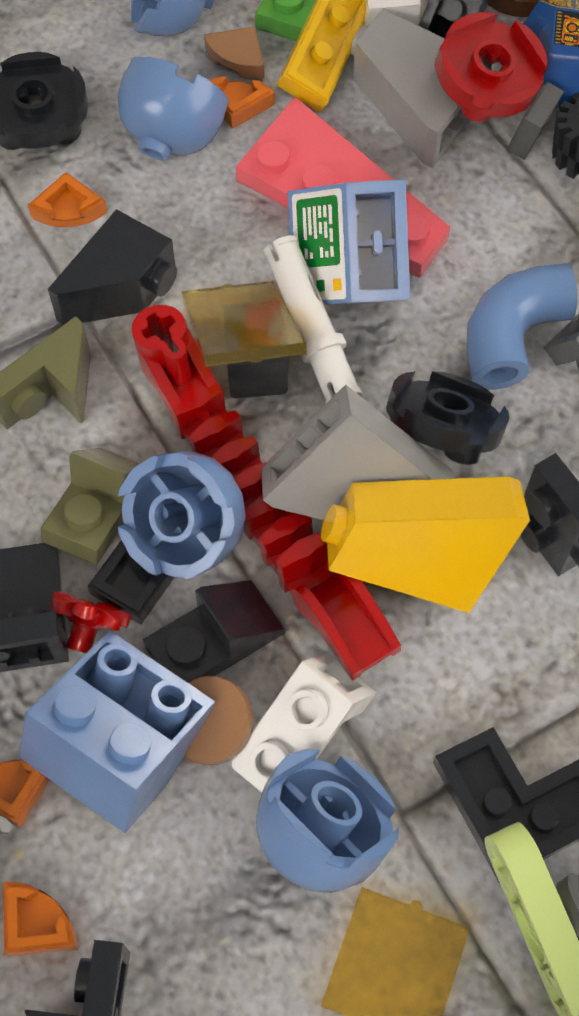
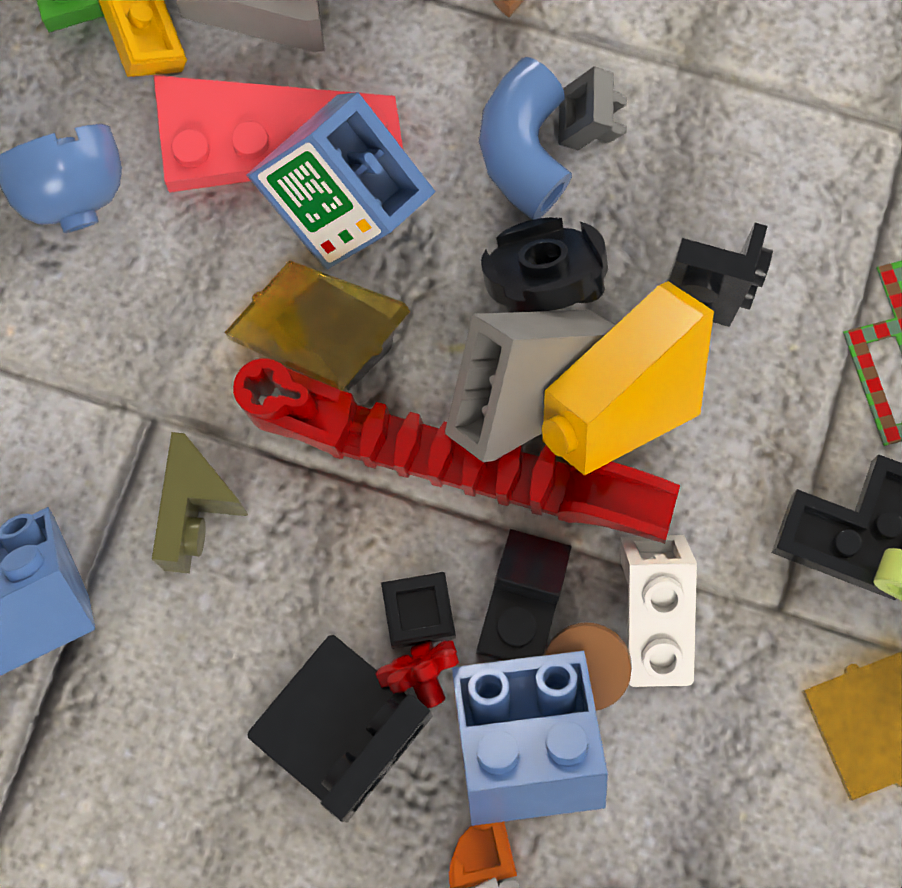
camera: 40 degrees left, 10 degrees up
(67, 204) = (45, 332): orange tile -> none
(90, 508) = (333, 573): olive slope -> none
(115, 272) = (157, 361): black slope -> none
(181, 514) = (422, 527): medium blue cylinder -> none
(237, 51) = (58, 69): medium nougat tile -> none
(244, 99) = (105, 107): orange tile -> none
(304, 303) = (358, 267): white pin -> none
(324, 822) = (752, 669): medium blue cylinder -> none

